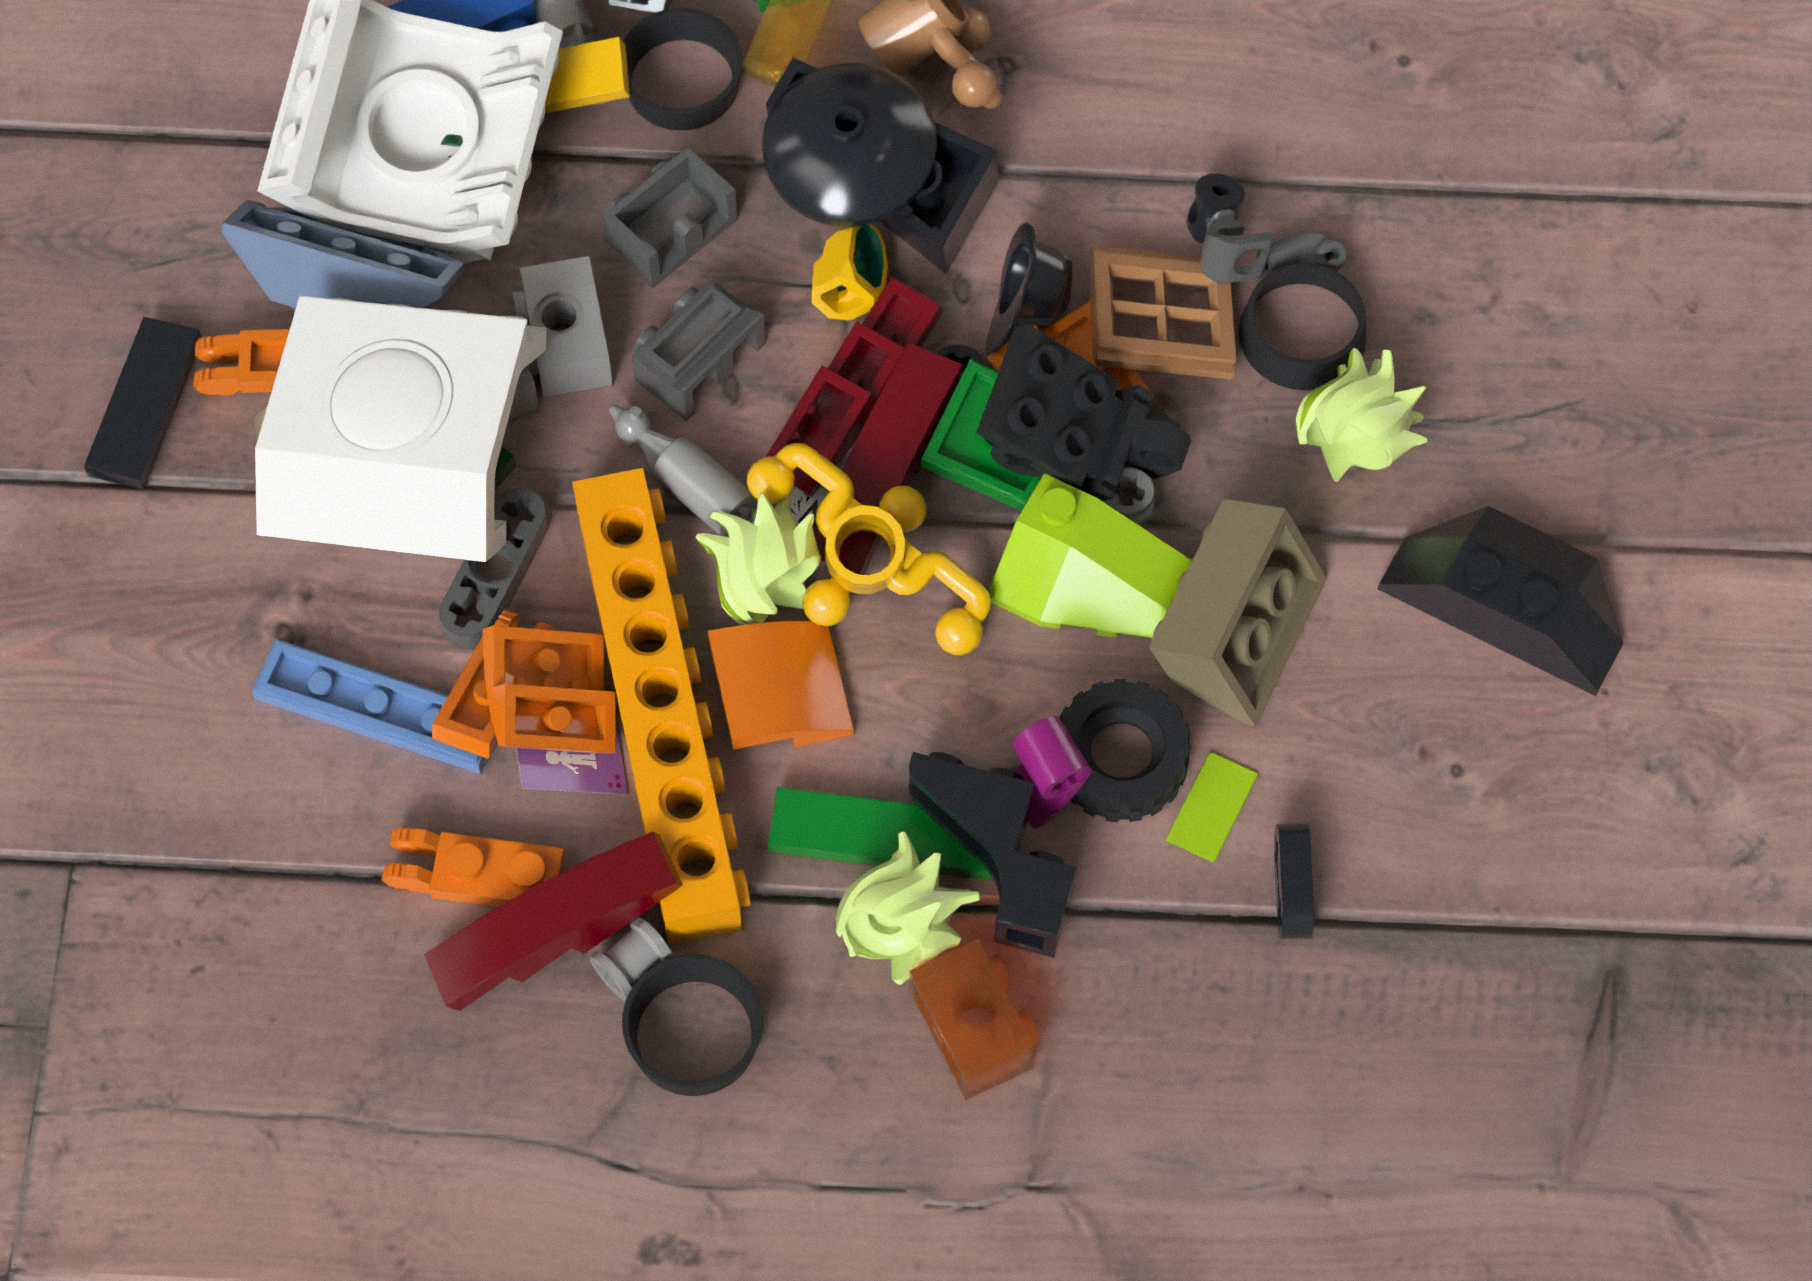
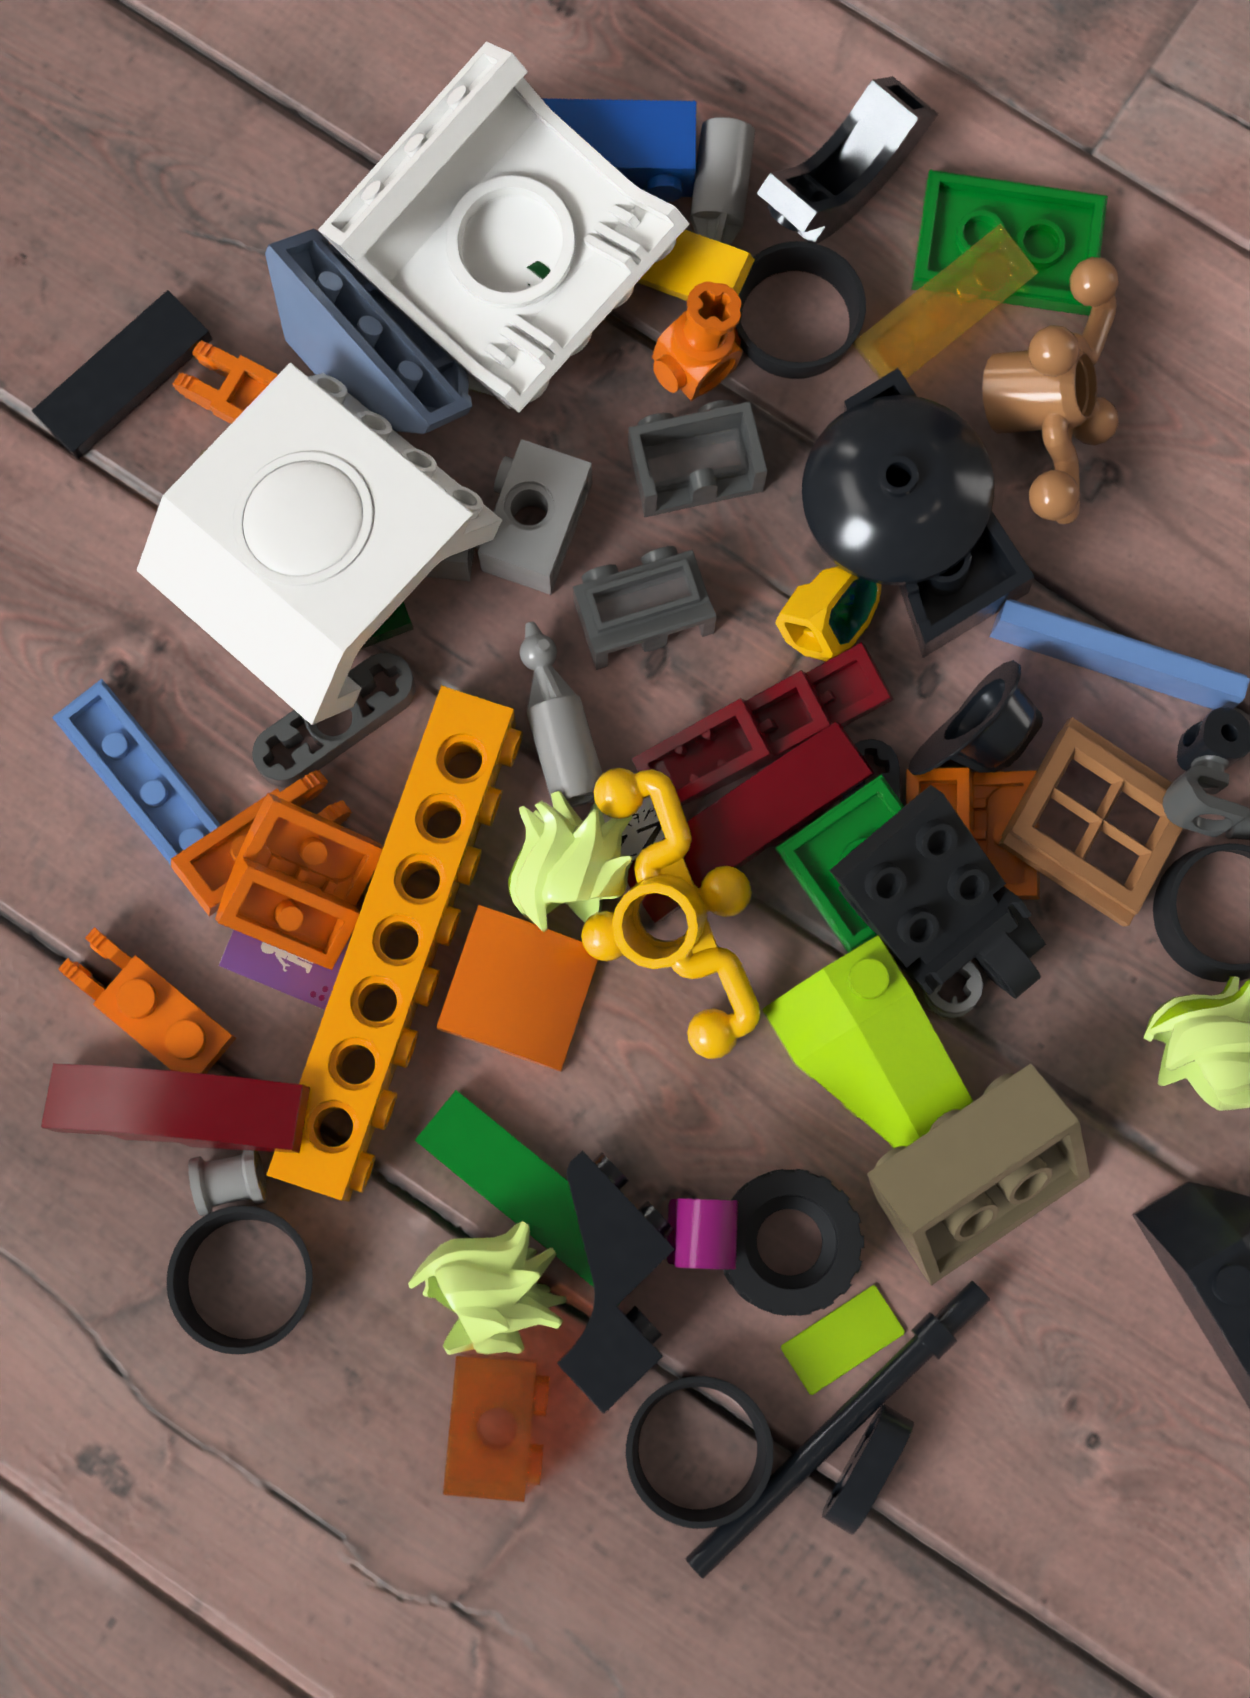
camera: 30 degrees right, 15 degrees up
(620, 128) = (701, 343): none -> orange connector
(1097, 186) = (1119, 656): none -> medium blue tile
(1156, 888) = (716, 1515): none -> black tyre
(1279, 762) = (932, 1338): none -> black bar

